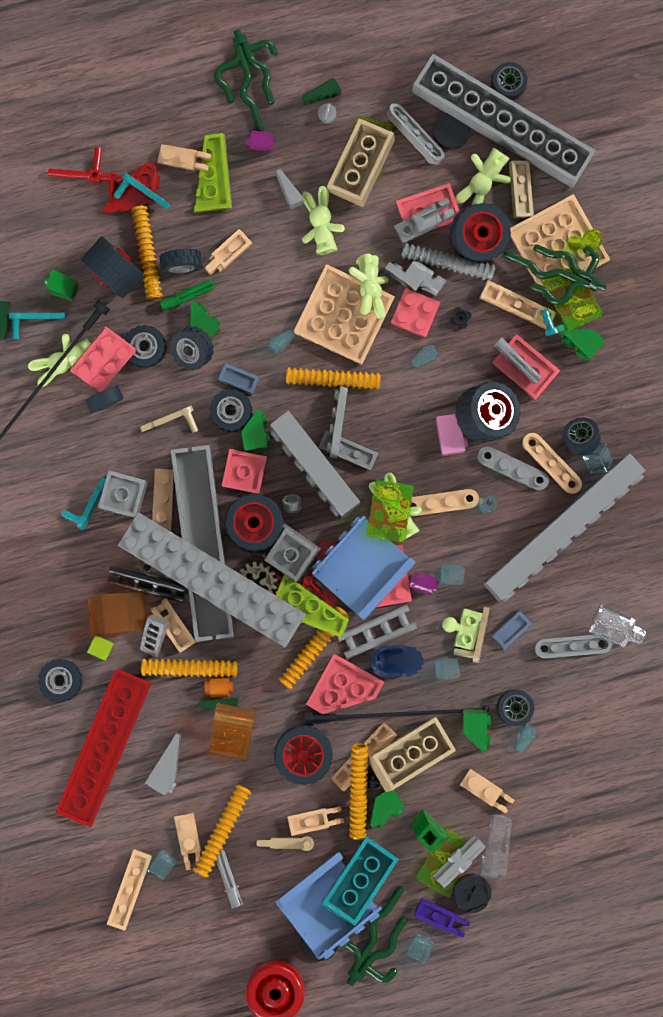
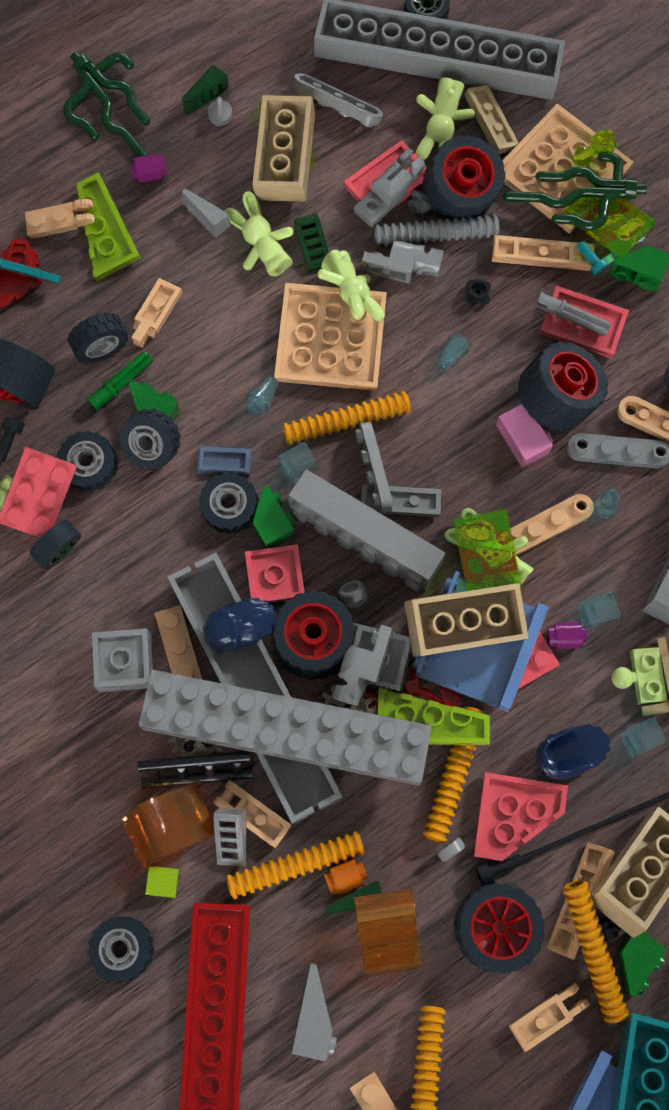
camera: 20 degrees left, 10 degrees down
(83, 521) = (80, 715): teal piece -> none
(146, 252) = (50, 346): light orange piece -> none
(186, 412) = (169, 525): tan piece -> none
(206, 500) = (239, 625): none -> dark blue hair
(277, 557) = (362, 665): none -> light grey plate
(287, 399) = (296, 461): none -> clear light blue panel
(293, 695) = (451, 850): none -> light grey tile
(305, 843) = (547, 1055): tan piece -> none
(355, 552) = (466, 620): none -> tan brick
(356, 223) = (307, 227): none -> dark green slope
(388, 634) = (547, 722): light grey bar -> none
(415, 313) = (419, 305): coral plate -> none
(443, 237) = (419, 204): none -> dark grey plate
(450, 132) = (378, 85): black tile -> none

